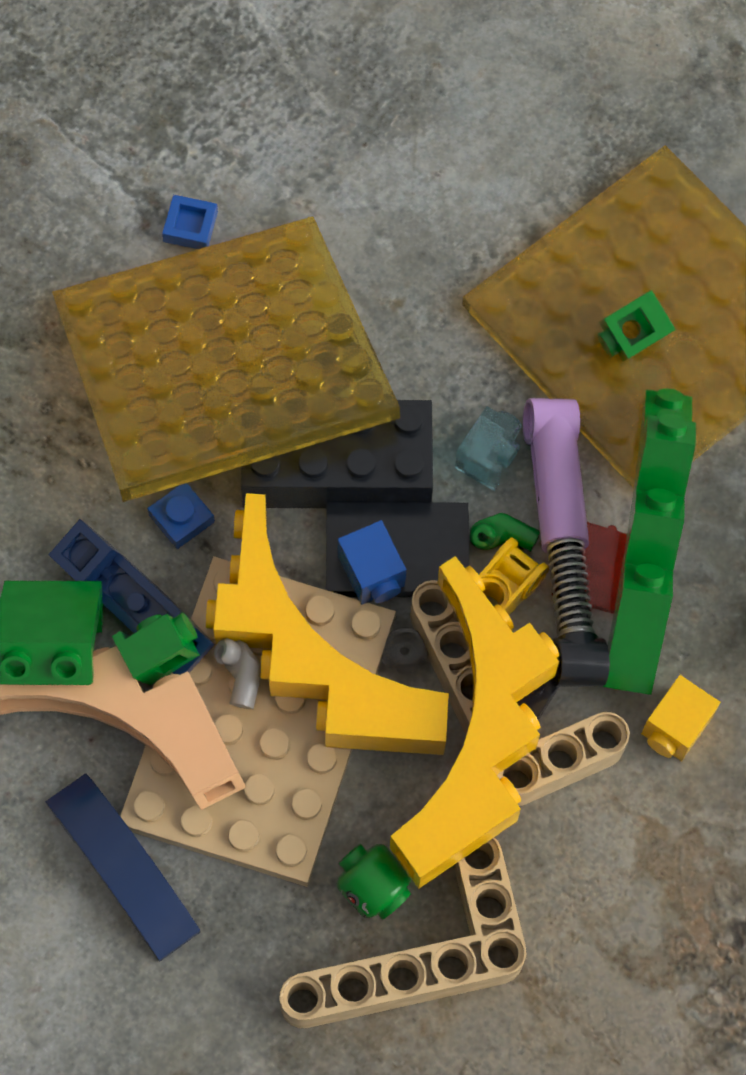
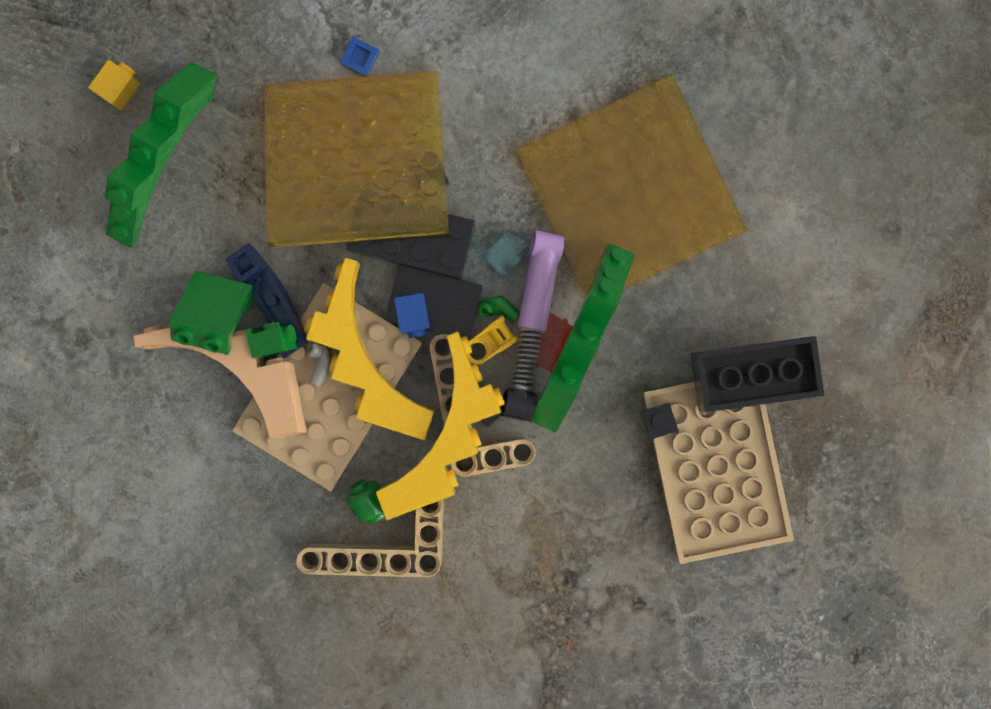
camera: 15 degrees right, 20 degrees up
(123, 866) = (228, 454): dark blue slope -> none
(181, 515) = (312, 254): blue plate -> none
(650, 322) = (622, 207): green brick -> none
(679, 719) = (568, 450): yellow brick -> none

